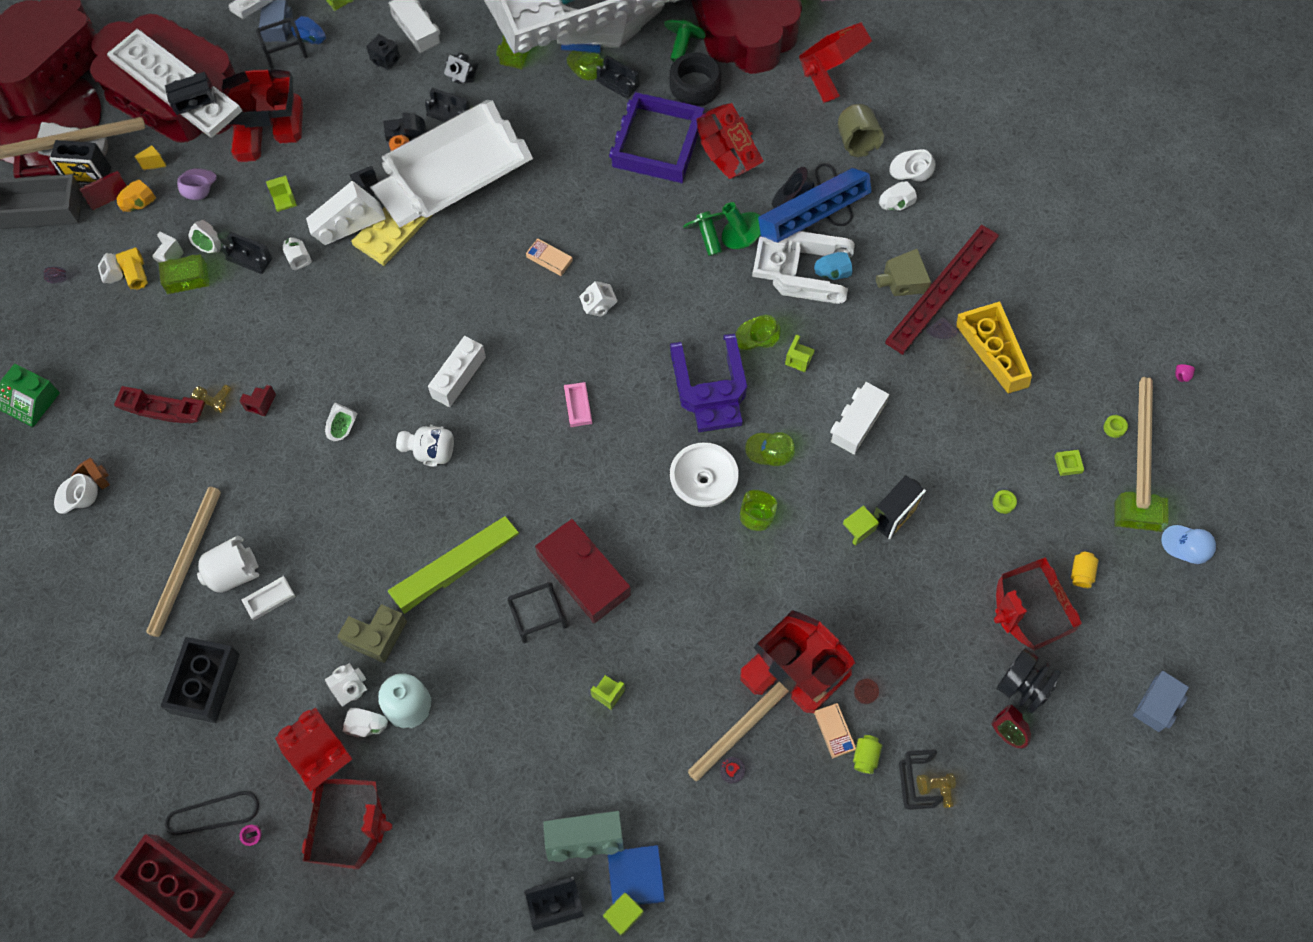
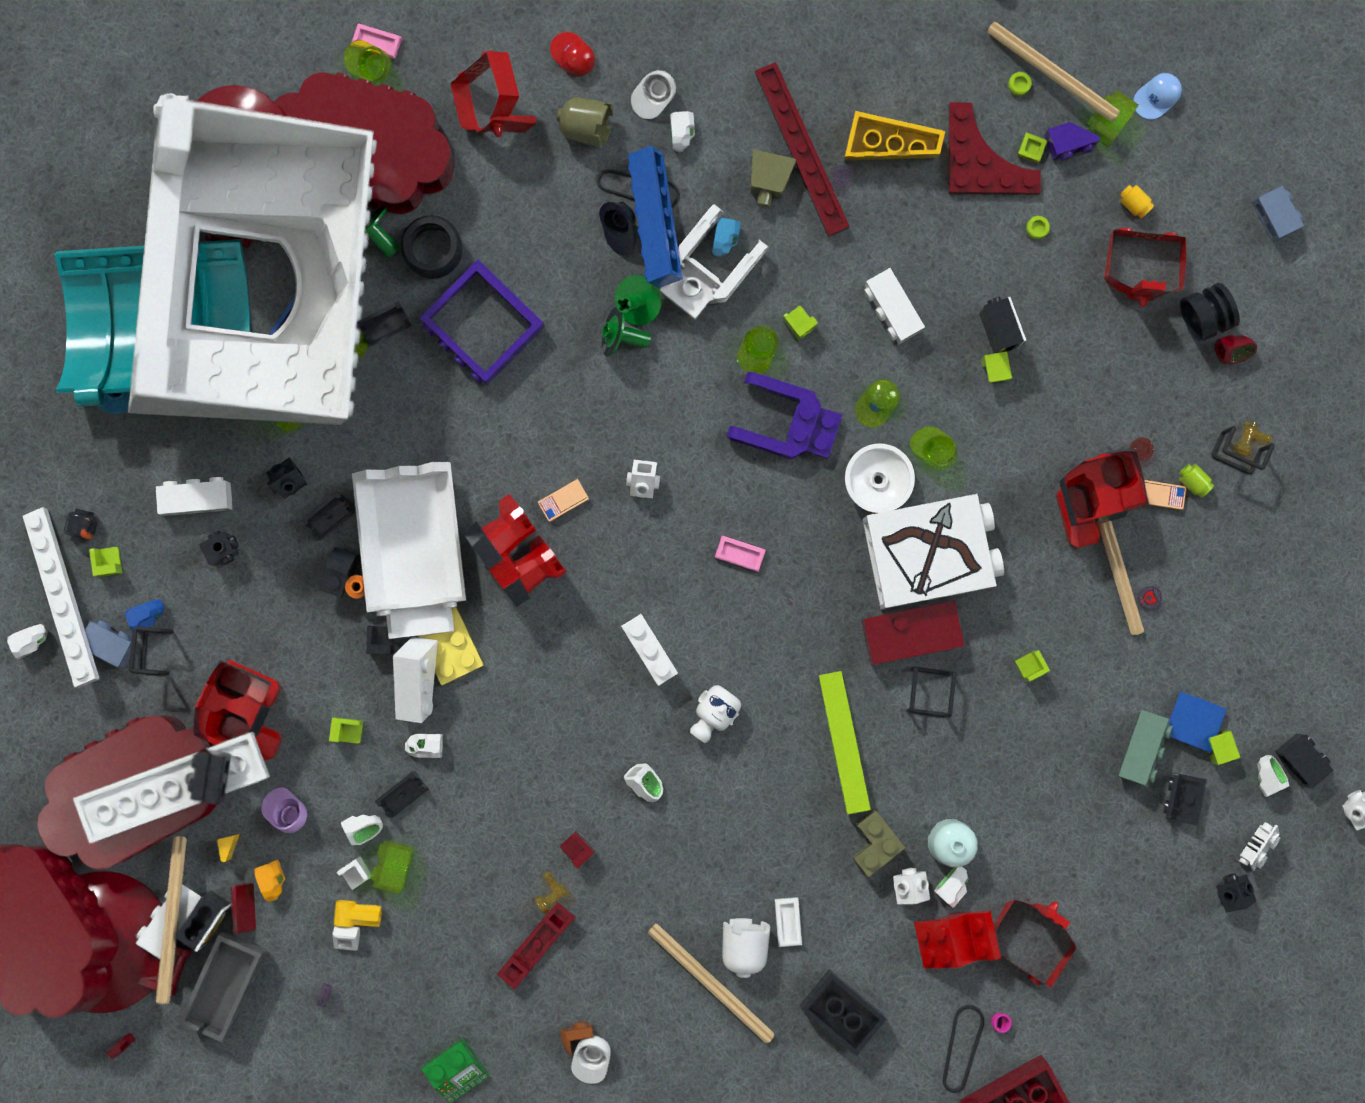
camera: 65 degrees left, 20 degrees up
(468, 220) = (500, 538): none -> red piece
(663, 546) = (932, 551): none -> white brick
(732, 135) = (537, 259): red piece -> none
(905, 105) = (572, 54): none -> red cap
(1022, 428) = (976, 167): none -> dark red plate
(1097, 486) = (1069, 139): none -> dark purple slope

